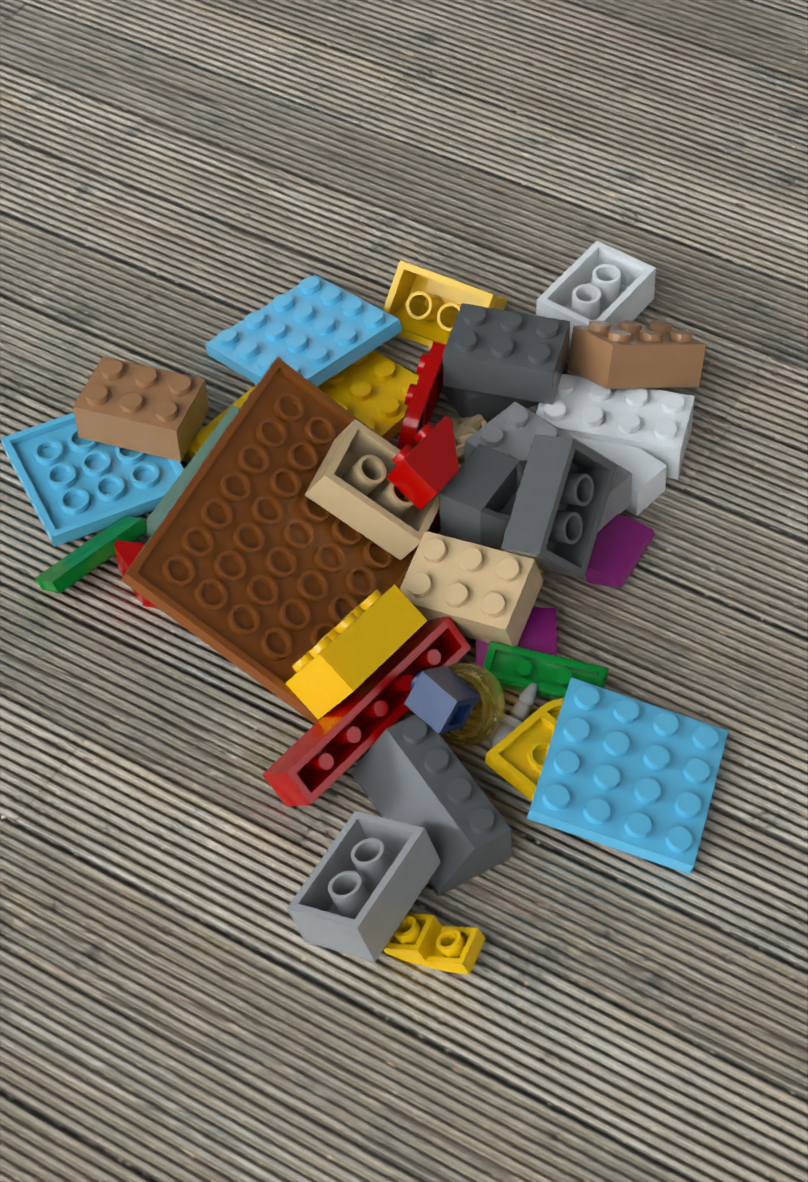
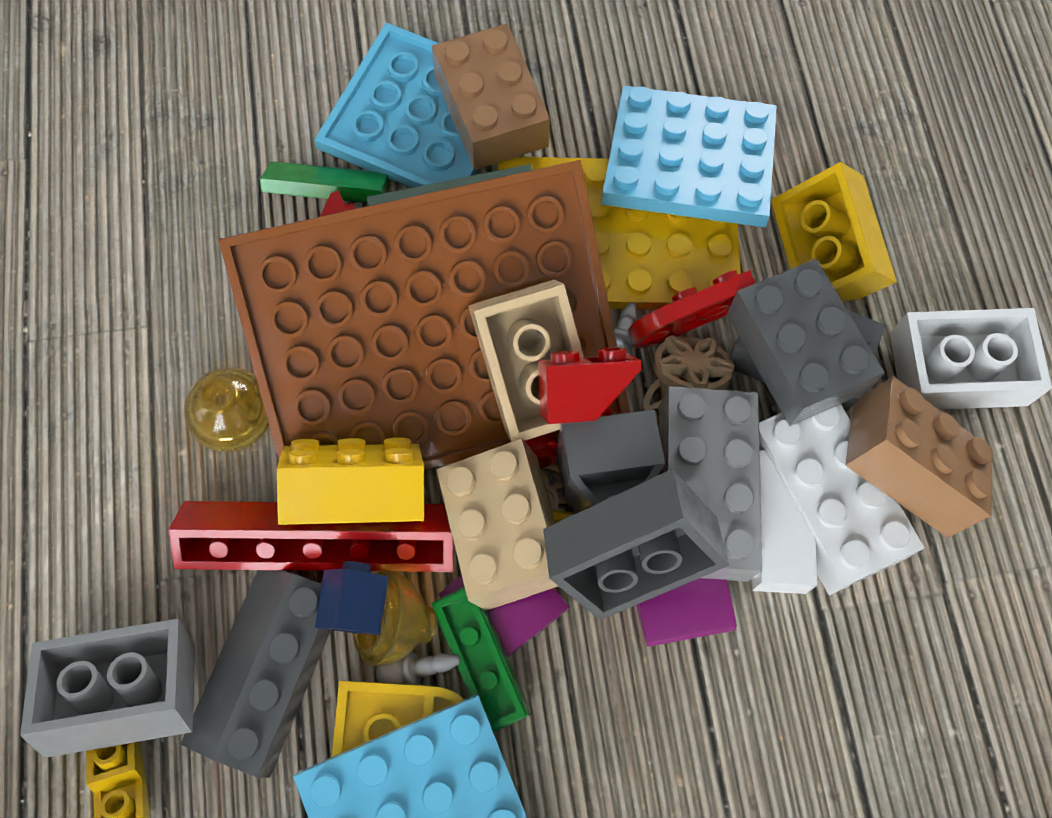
camera: 45 degrees right, 20 degrees up
(211, 717) = (235, 422): none -> clear yellow piece

